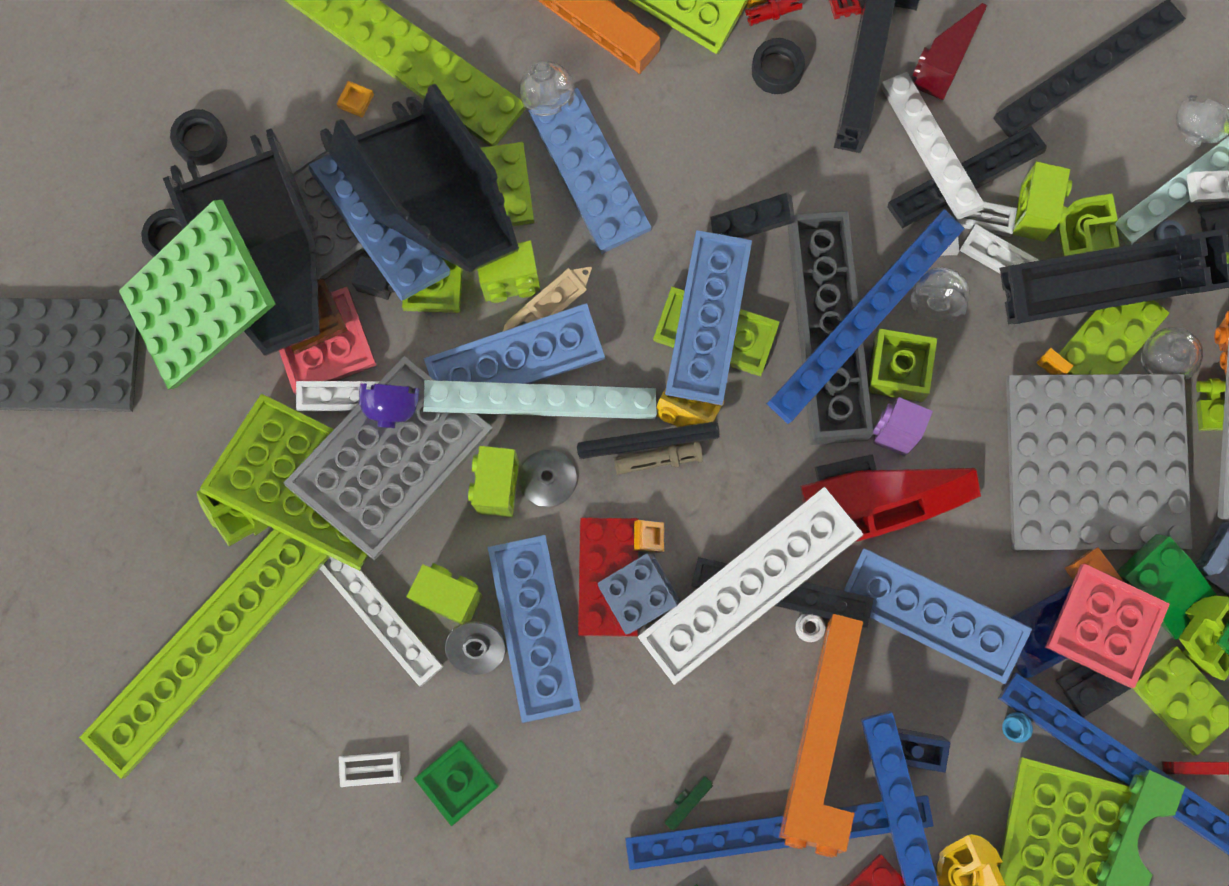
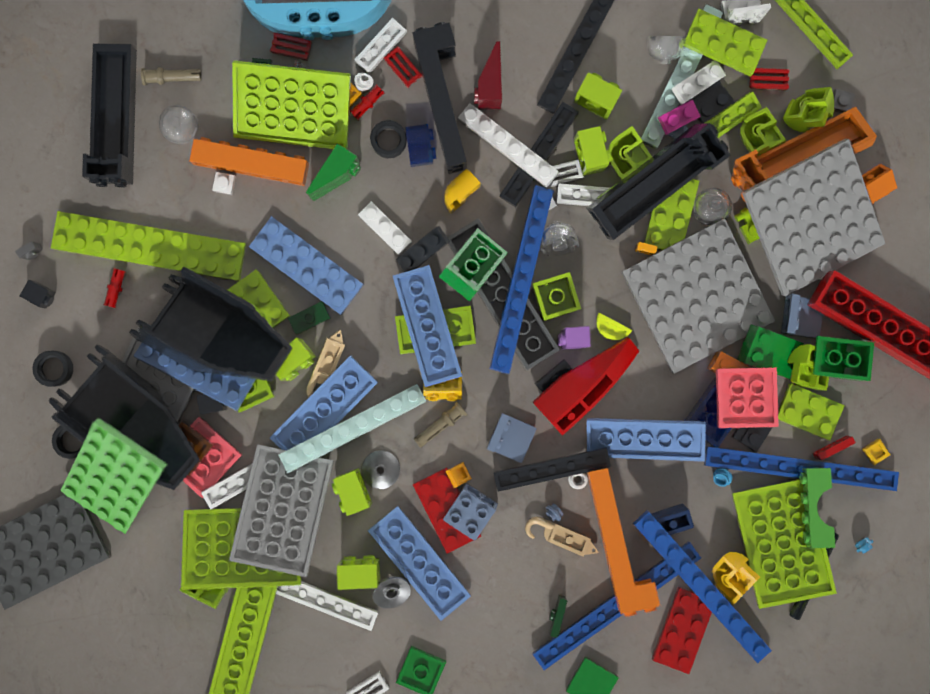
camera: 30 degrees left, 10 degrees up
(233, 39) = (37, 294): none -> black brick
(331, 79) = (114, 288): none -> red pin
(355, 99) = (136, 293): light orange tile -> none
(388, 403) = (264, 481): dark purple cylinder -> none
(539, 21) = (224, 183): none -> white plate
(546, 88) = (253, 229): clear cylinder -> none
(558, 236) = (309, 318): none -> dark green plate
(648, 440) = (429, 419): black axle -> none
(687, 69) = (336, 171): none -> green slope
(716, 172) = (384, 228): none -> white plate
(743, 518) = (511, 438): none -> sand blue bracket
(750, 585) = (532, 477): white plate -> none
(752, 697) = (562, 536): none -> tan plate
(754, 654) = (554, 512): none -> sand blue plate
(811, 262) = (473, 264): none -> green slope
(814, 92) = (419, 145): none -> clear blue brick
(840, 166) = (460, 189): none -> yellow brick
(956, 447) = (611, 329): none -> neon yellow plate
(1082, 137) = (597, 95): none -> lime brick
(1180, 216) = (679, 117): none -> dark pink plate

